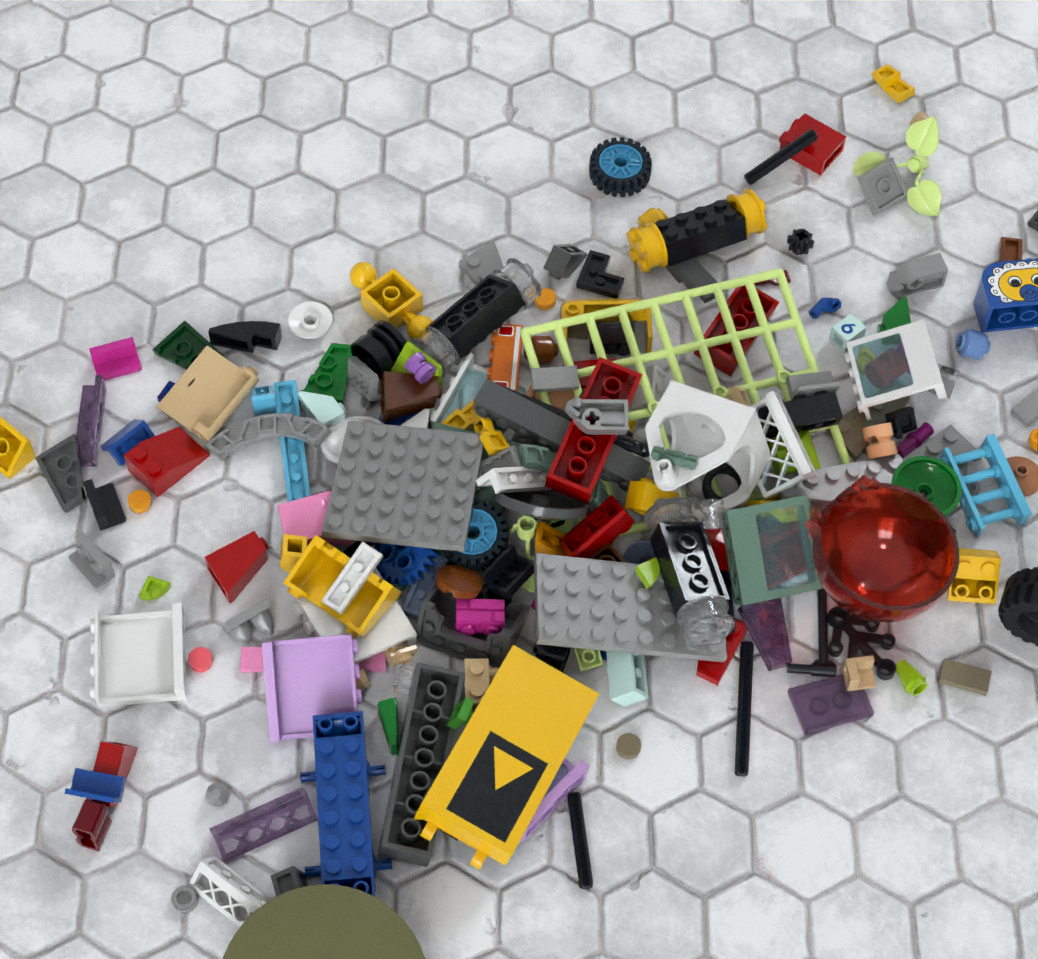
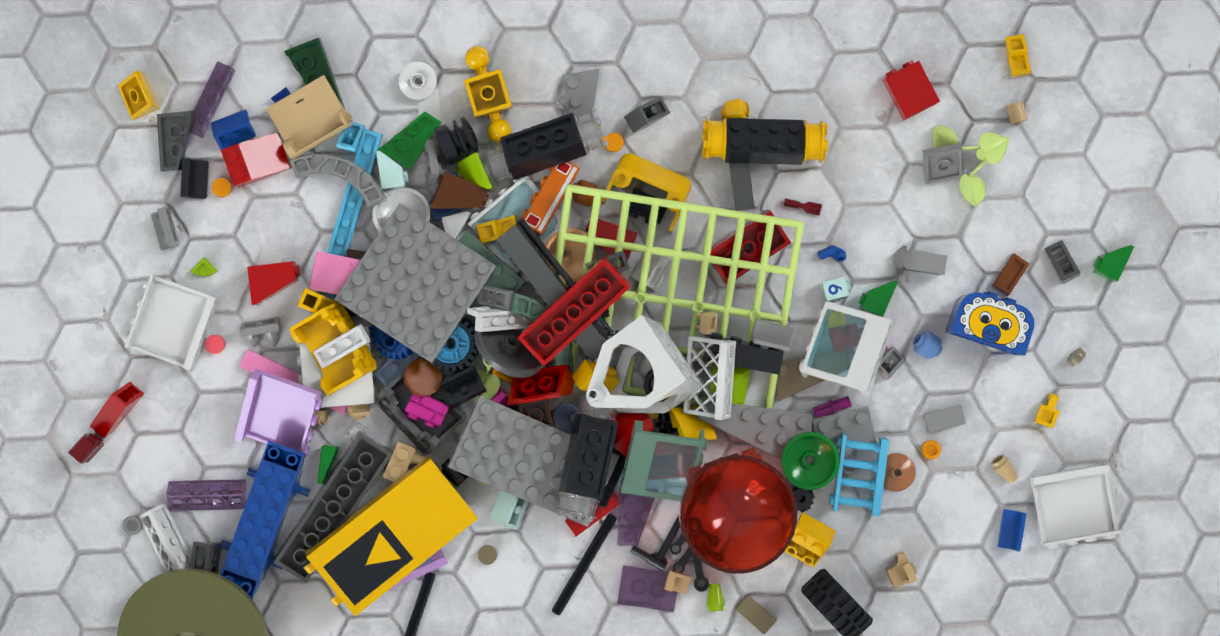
camera: 30 degrees right, 30 degrees up
(97, 786) = (96, 426): blue panel -> none
(115, 358) = (252, 48): dark pink panel -> none
(217, 794) = (184, 458): light grey rock -> none
(246, 335) = (362, 73): black slope -> none
(420, 367) = (476, 187): medium lavender wheel -> none
(461, 713) = (372, 489): bright green plate -> none
(491, 439) = (499, 274): yellow plate -> none
(554, 379) = (572, 241): light grey tile -> none
(596, 280) = (661, 142): black plate -> none
(608, 414) = (583, 314): light grey piece -> none
(620, 167) = (740, 25): wheel -> none
(648, 572) = (559, 443): lime tile -> none
(676, 458) = (607, 387): sand green axle -> none
(713, 514) = (625, 426): clear wheel -> none
(780, 157) = (874, 96): black axle -> none
(800, 241) = (851, 184): black gear -> none
(879, 441) = (801, 400): light nougat wheel -> none
(902, 421) = (829, 389): black bracket -> none

